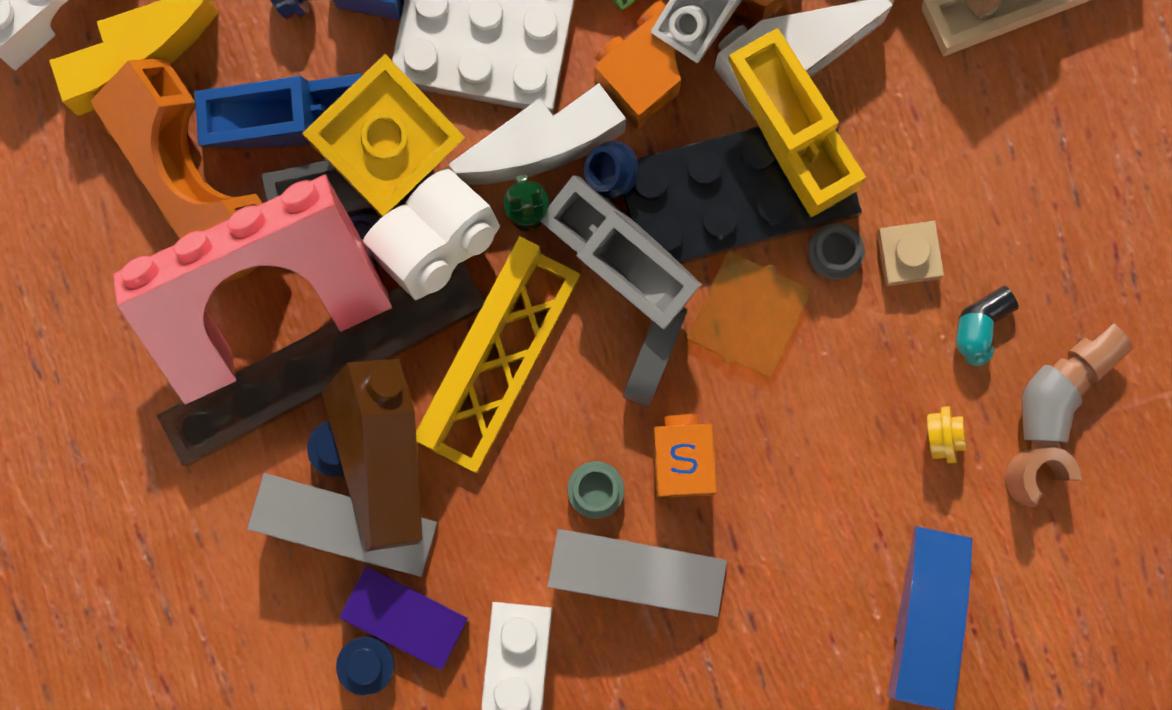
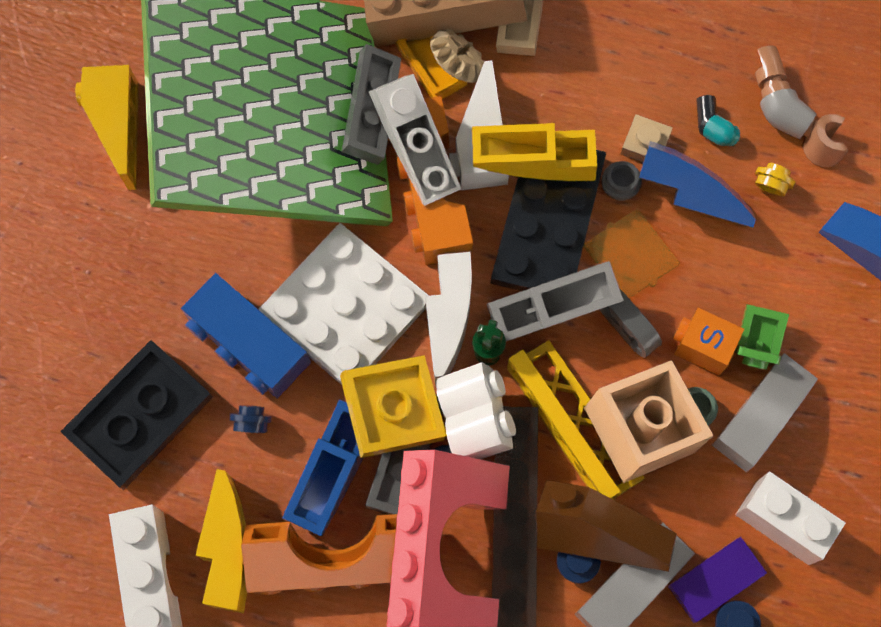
camera: 60 degrees left, 10 degrees down
(536, 437) = (647, 421): none -> light nougat brick
(611, 169) = (495, 279): dark blue plate -> none
(725, 520) = (761, 336): none -> bright green bracket
(877, 342) = (695, 184): none -> blue slope

